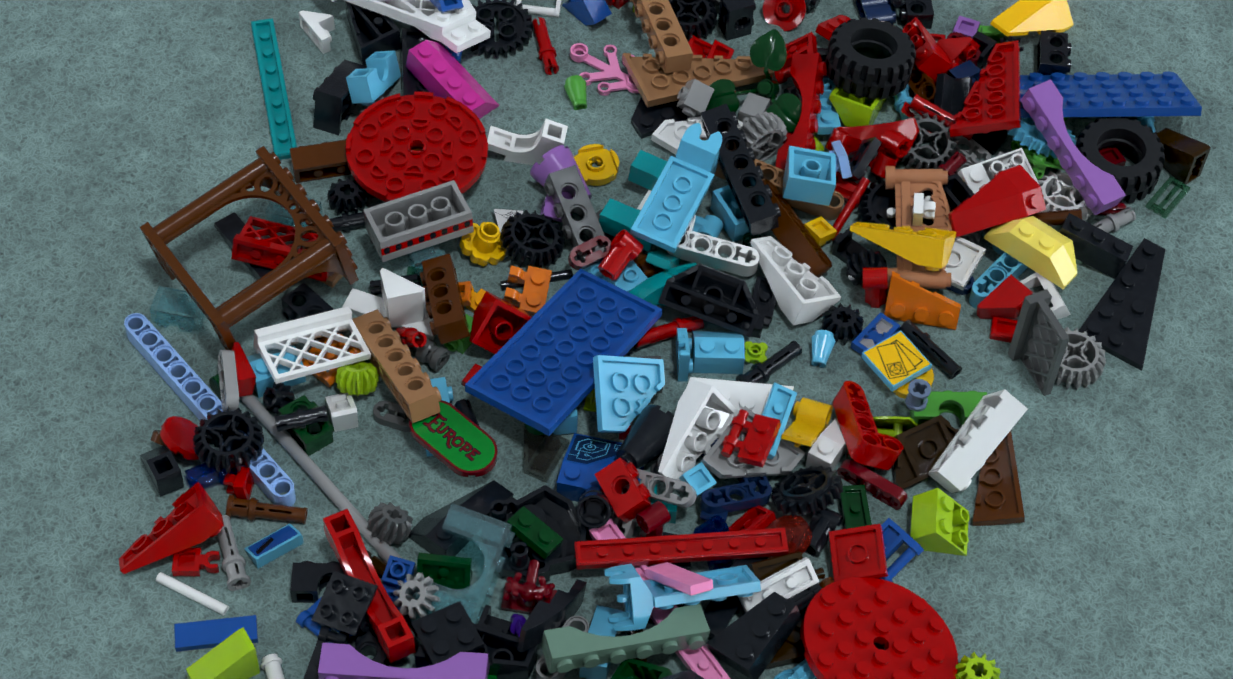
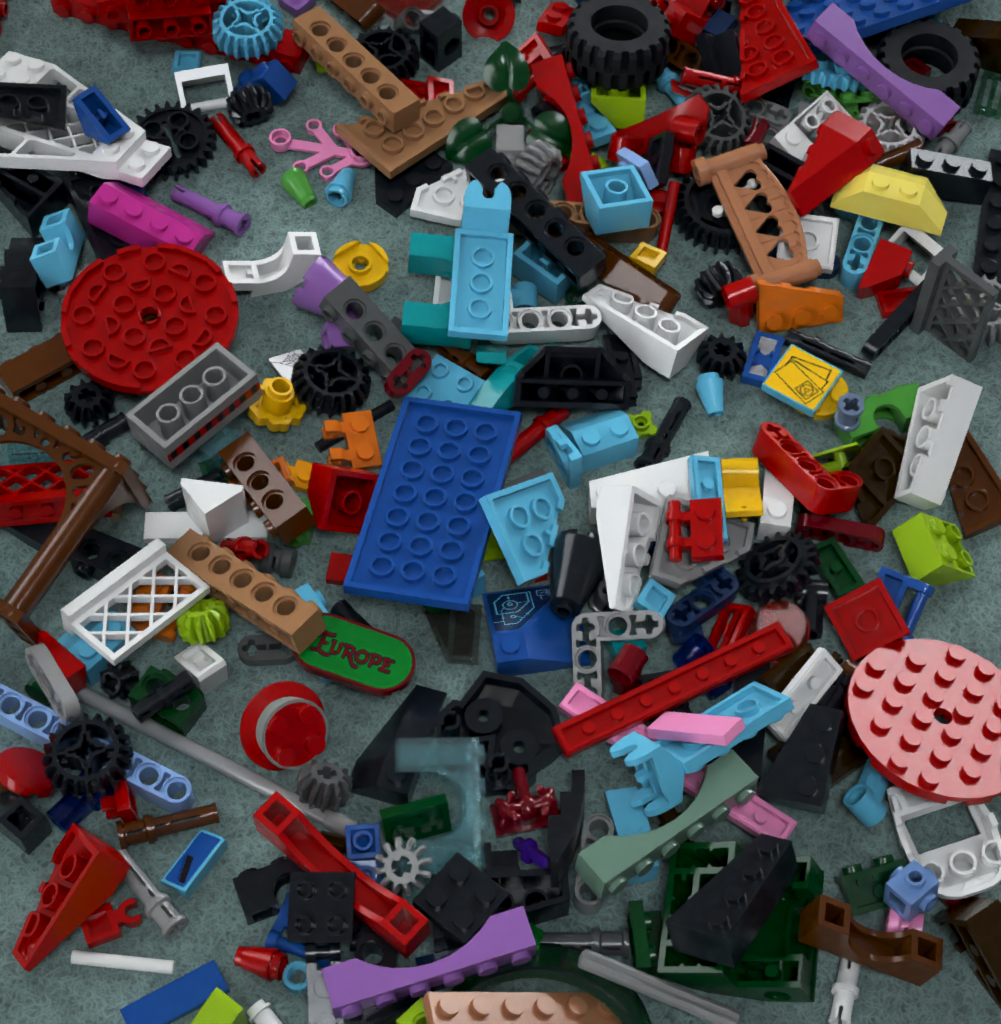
camera: 20 degrees left, 5 degrees up
(290, 630) = (262, 961): none -> red cone
(304, 644) = (291, 969): none -> medium azure axle
(378, 470) = (284, 727): none -> red piece
(508, 92) = (220, 214): none -> medium lavender pin
(534, 532) = (501, 733): dark green plate -> none
(566, 19) = (249, 105): none -> black gear
(593, 508) = (554, 677): black wheel -> none
(608, 102) = (341, 188): none -> medium azure cone
(612, 481) = (562, 638): red brick -> none
(623, 250) = (447, 357): red piece -> none
(694, 97) = (441, 150): light grey brick -> none
(845, 246) = (685, 269): black bracket -> none
(922, 209) = (755, 197): white tile -> none
(923, 247) = (778, 239): yellow wedge -> none
(987, 347) = (892, 326): none -> black beam

